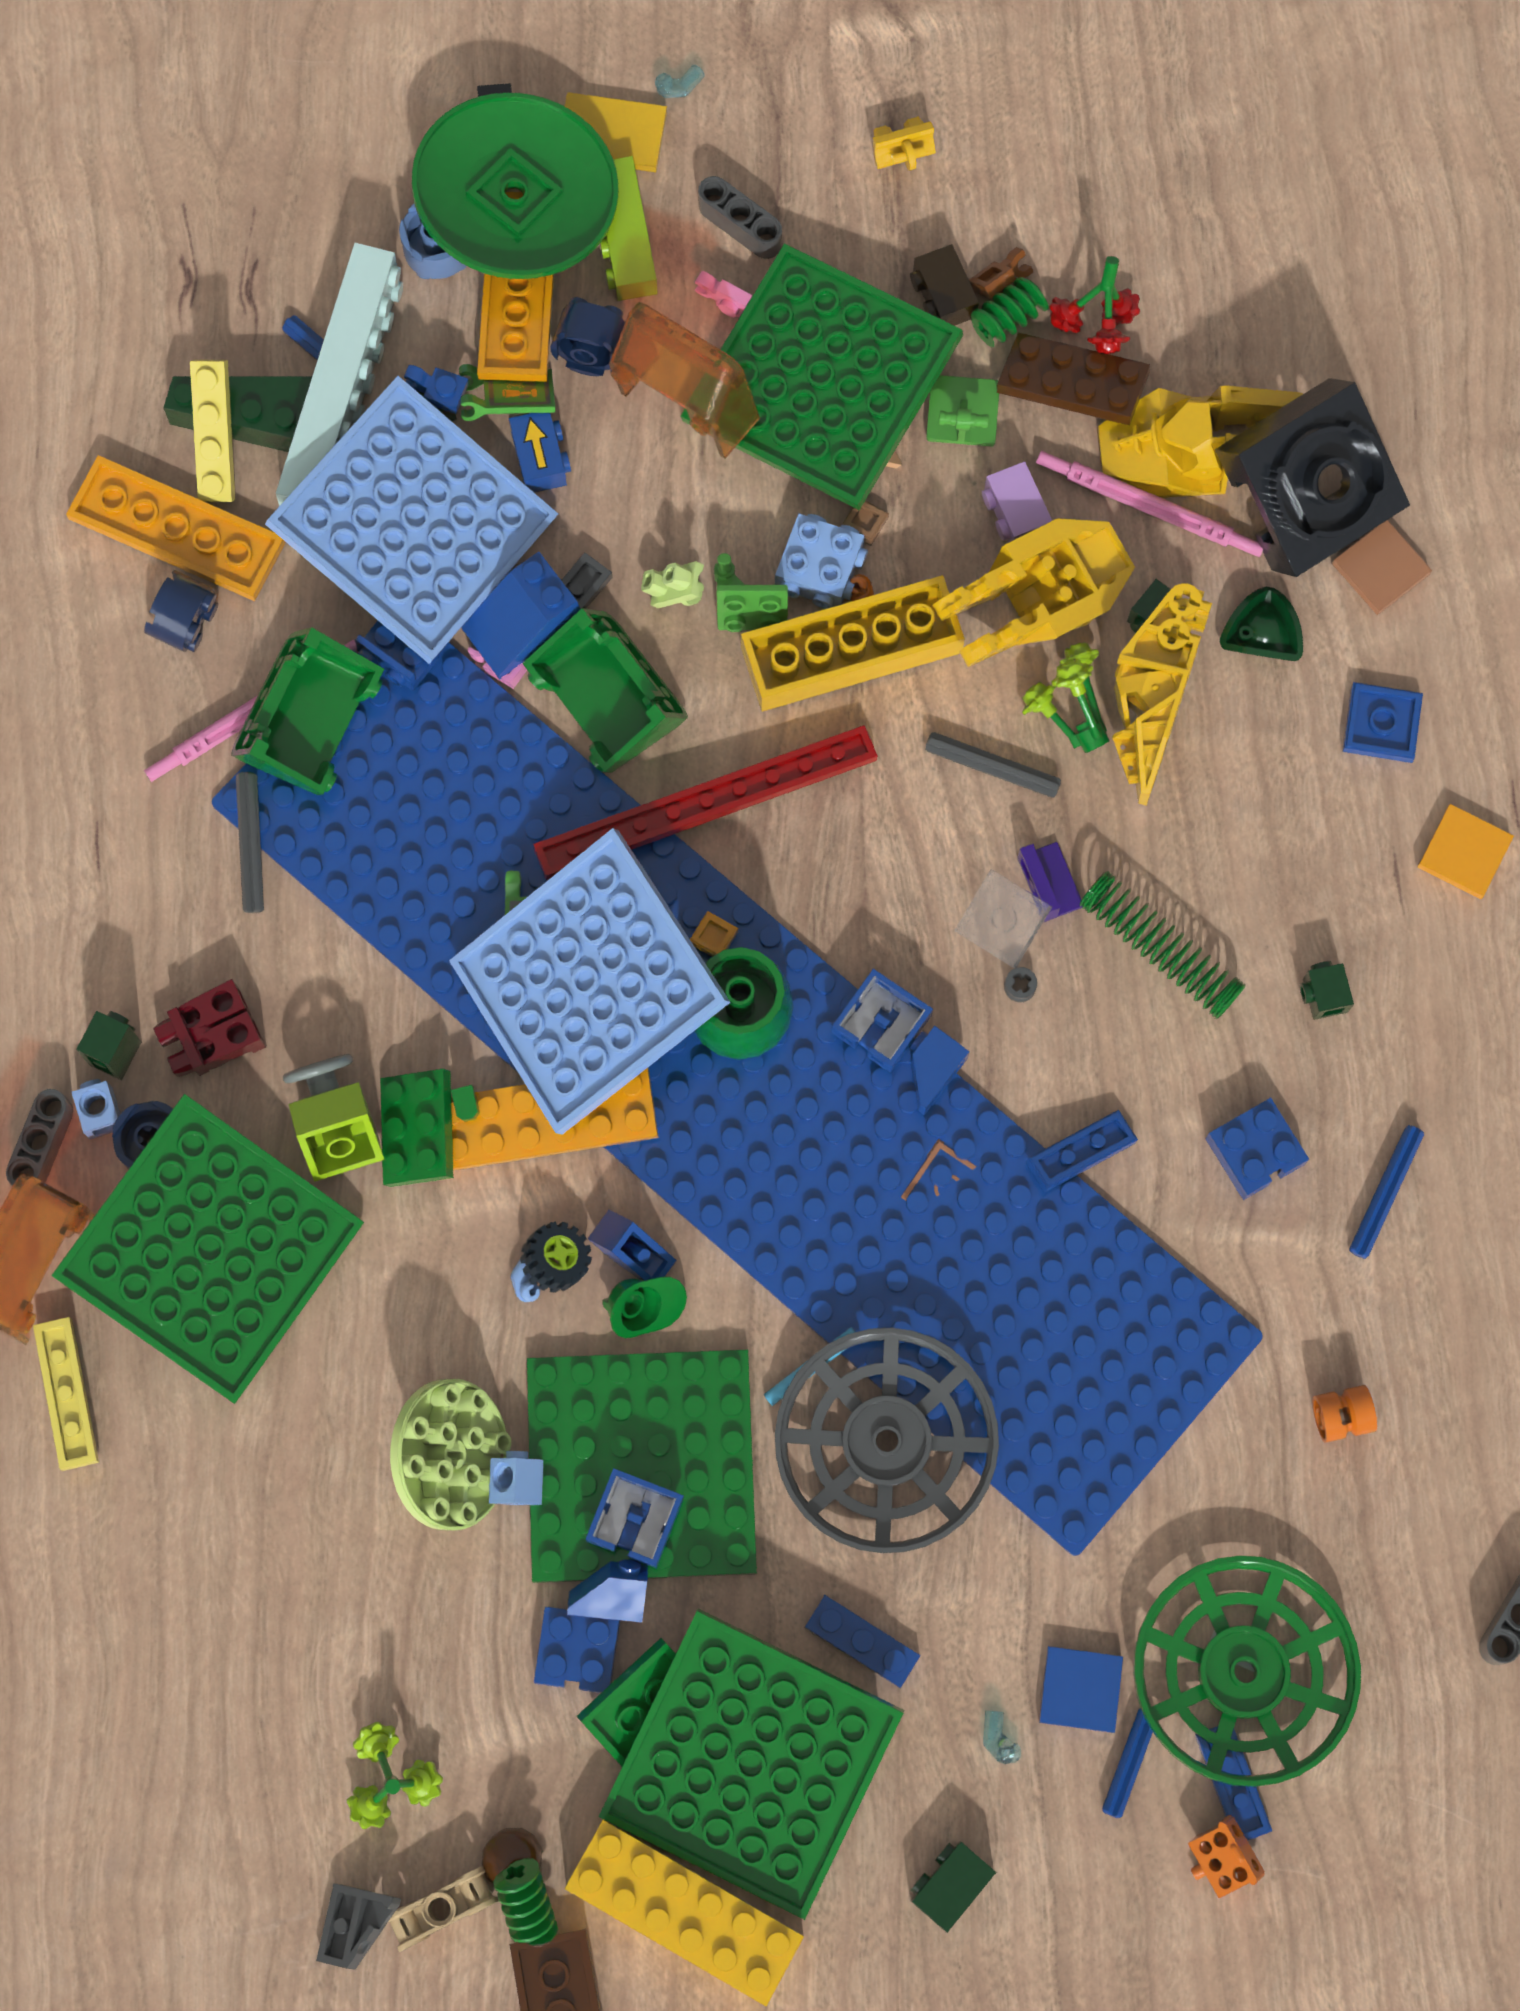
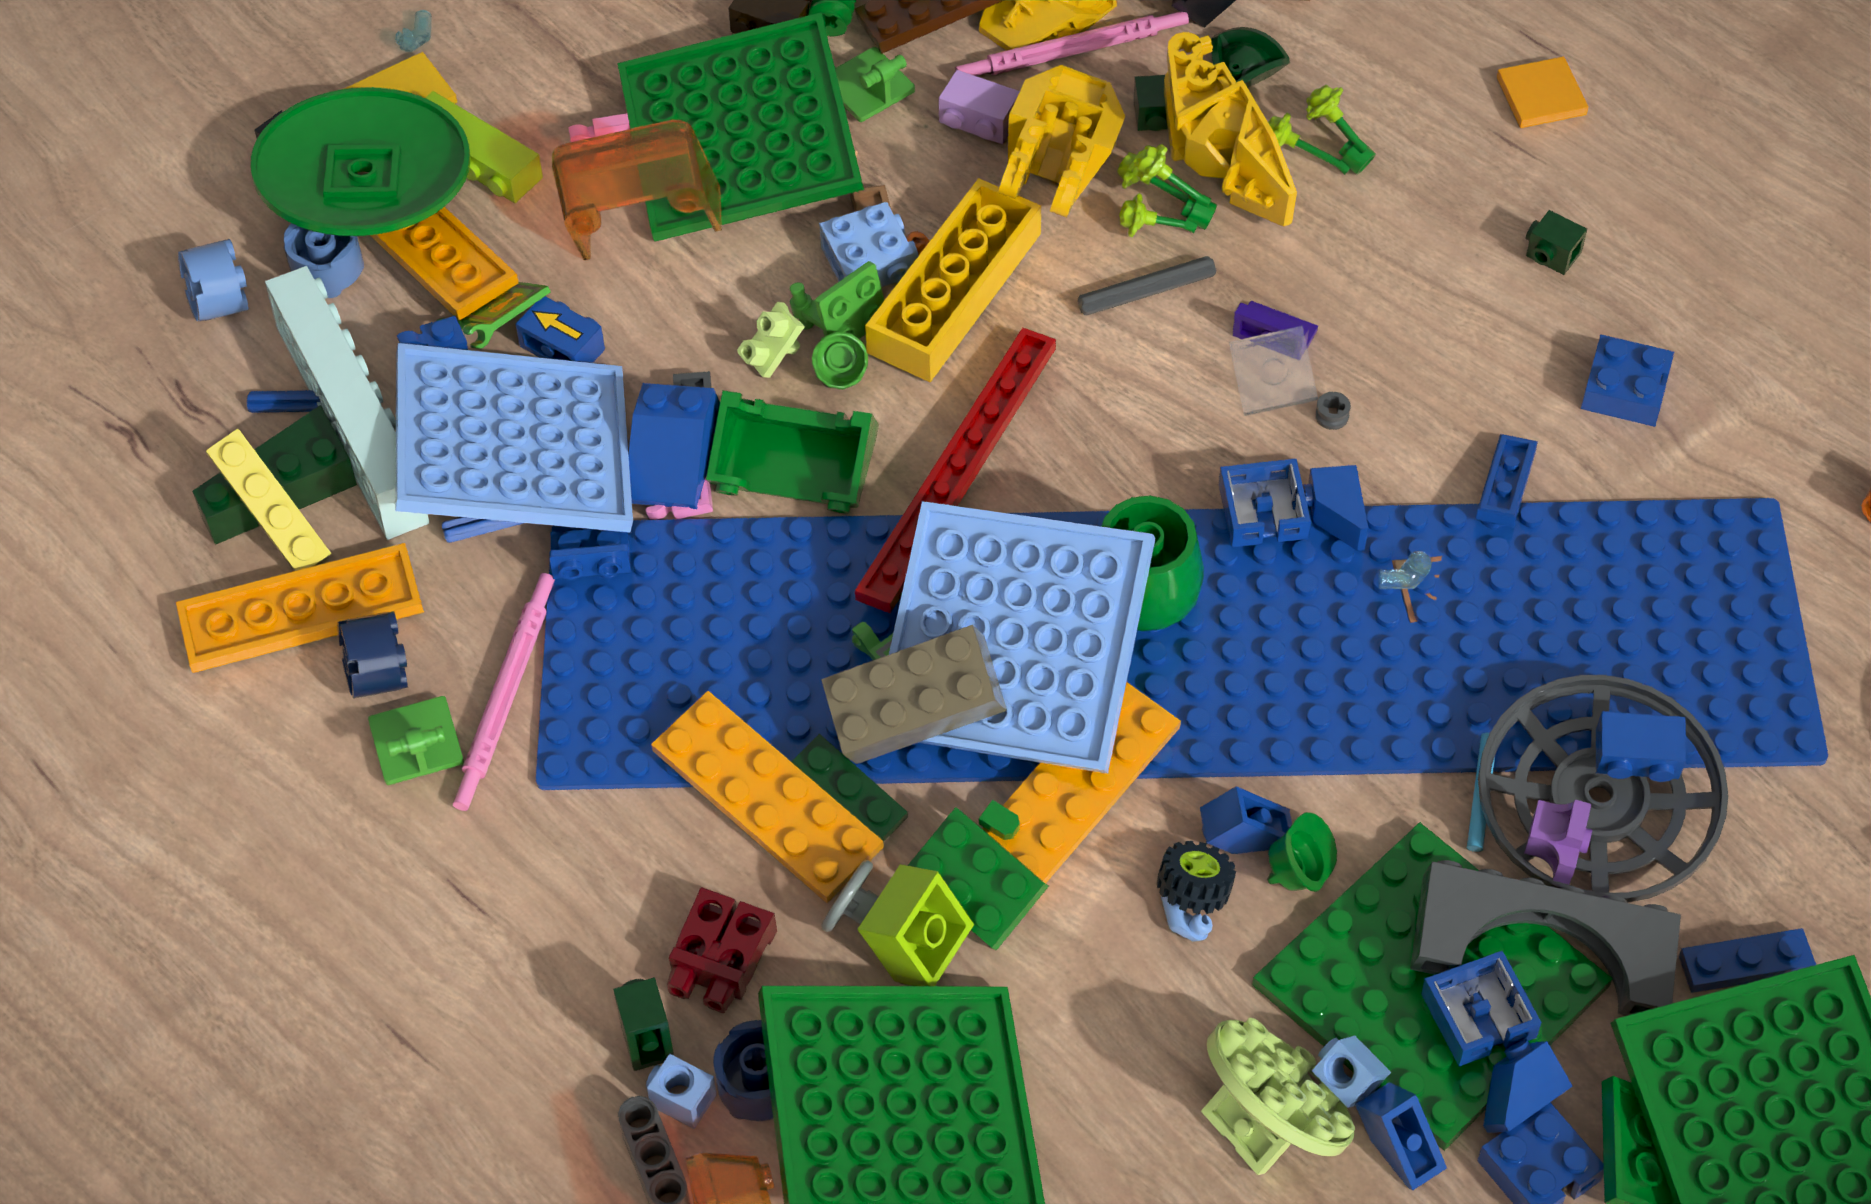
camera: 40 degrees left, 20 degrees down
(162, 699) = (415, 740): none -> bright green plate
(249, 842) = (606, 782): dark grey axle -> none
(306, 710) = (553, 639): green windscreen -> none
(337, 200) = (213, 280): none -> medium blue brick
(342, 945) = (767, 796): none -> light orange plate
(400, 988) = (850, 787): none -> dark green plate
(484, 965) = (914, 694): none -> dark tan brick
(508, 1550) = (1401, 1134): none -> blue slope
(587, 336) = (524, 227): dark blue brick -> none
(706, 642) = (840, 360): none -> bright green hair
(736, 203) = (559, 79): dark grey beam -> none
(790, 1563) = (1629, 939): none -> dark grey arch
(809, 1452) = (1559, 835): none -> medium lavender brick
(930, 1164) = (1409, 575): none -> clear light blue arm
(930, 1439) = (1640, 745): none -> blue brick
(1225, 997) = (1491, 302): green piece -> none
(1257, 731) = (1322, 103): none -> plant
(1382, 722) = (1391, 58): blue tile -> none
(1386, 1191) = (1747, 338): blue axle -> none

